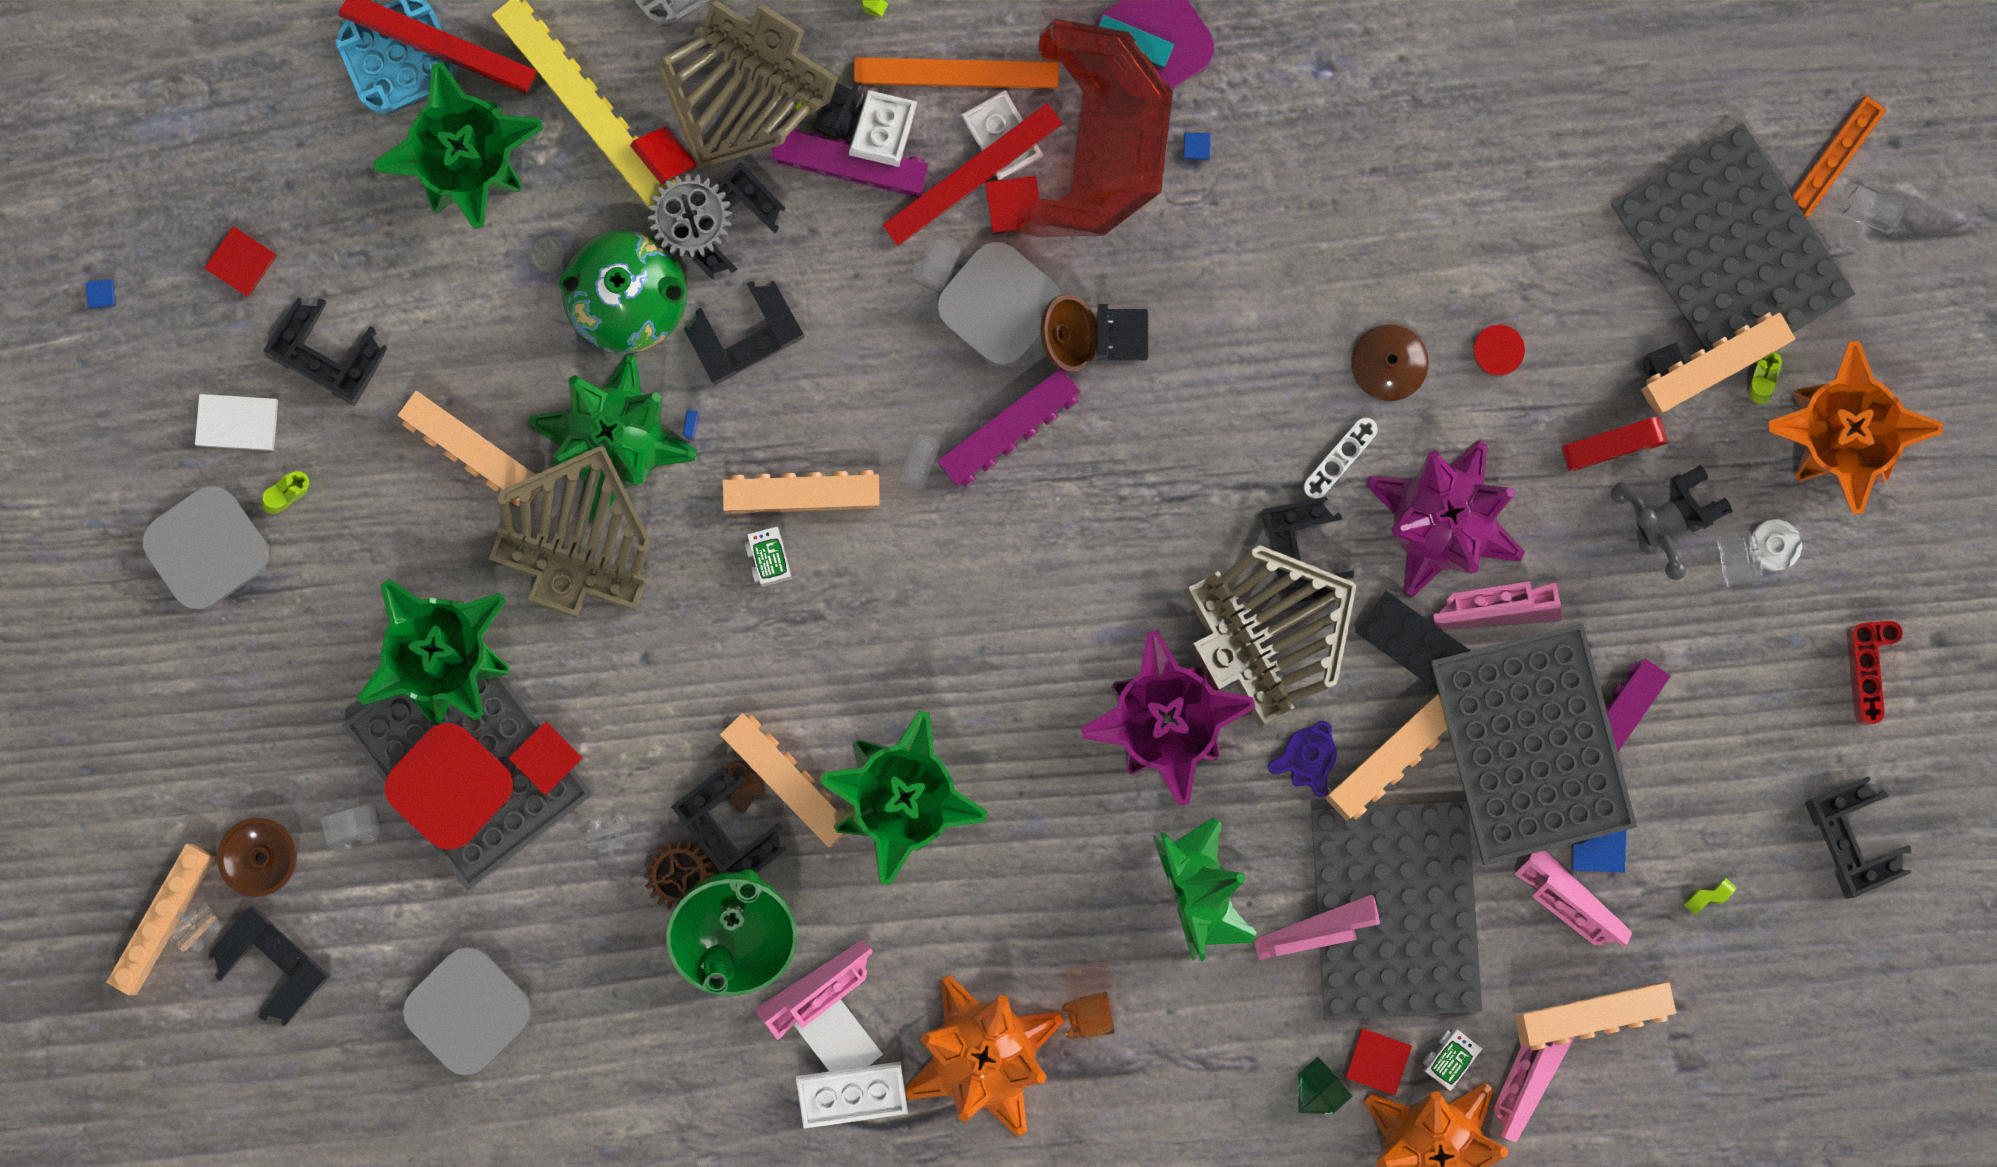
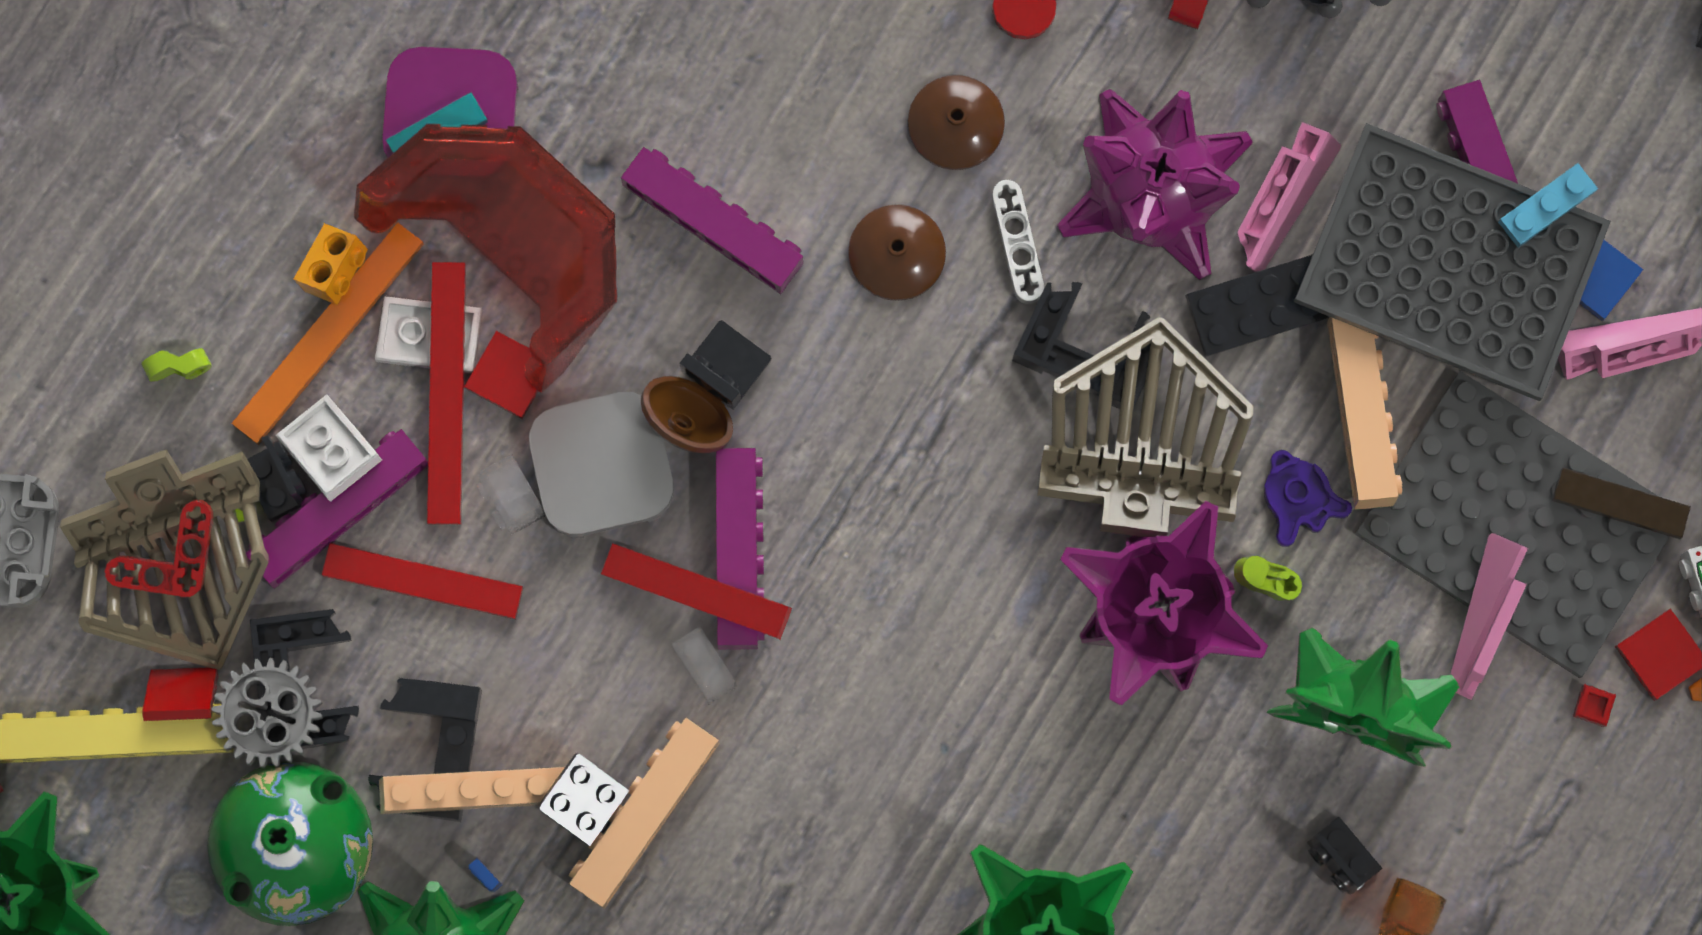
camera: 55 degrees left, 5 degrees down
(733, 92) = (170, 571): none -> red beam
(740, 383) = (465, 790): none -> light nougat brick
(769, 557) = (685, 895): brick -> none
(780, 448) = (583, 798): none -> bracket
(844, 249) = (422, 581): none -> red tile
(962, 422) = (696, 591): none -> red tile
(998, 35) = (325, 261): none -> light orange brick
(1097, 949) = (1343, 856): none -> black bracket
(1196, 146) = (590, 149): blue tile -> none
(1208, 256) = (713, 220): none -> magenta brick
(1241, 786) = (1253, 574): none -> lime piece
(1274, 405) = (893, 273): none -> reddish brown dish
(1312, 1041) = (1594, 705): none -> red tile
(1320, 1090) = (1650, 733): clear green slope -> none
(1456, 965) = (1621, 503): none -> dark brown tile
(1616, 778) = (1548, 205): none -> medium azure plate

